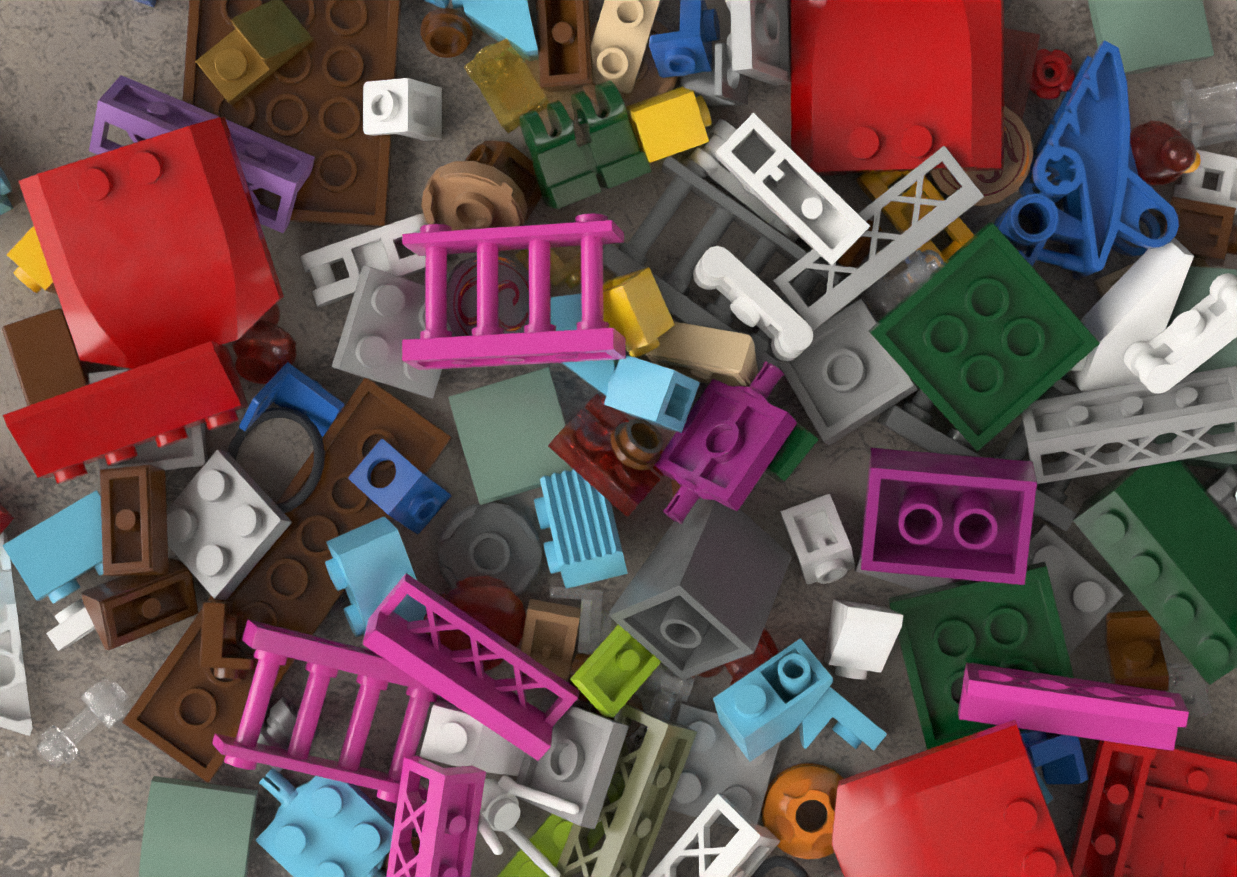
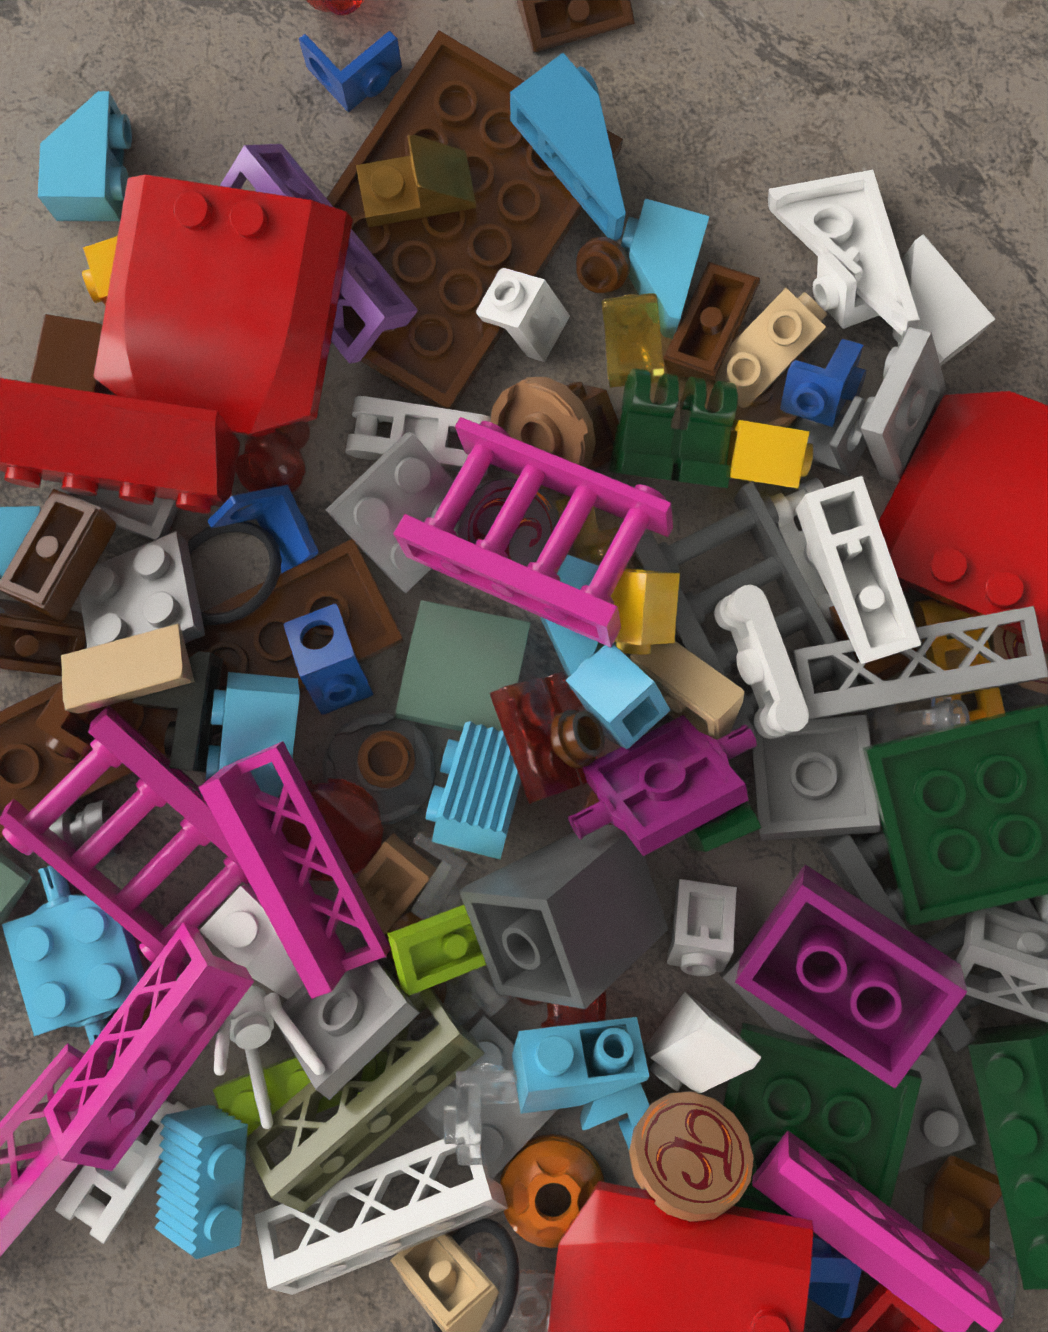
camera: 25 degrees right, 5 degrees down
(249, 583) = (125, 669): none -> tan slope
(308, 574) = (191, 733): none -> pearl dark grey slope
(492, 542) = (386, 759): none -> reddish brown plate
(704, 761) = (463, 1122): none -> clear bracket
(897, 720) = (691, 1156): none -> medium nougat tile

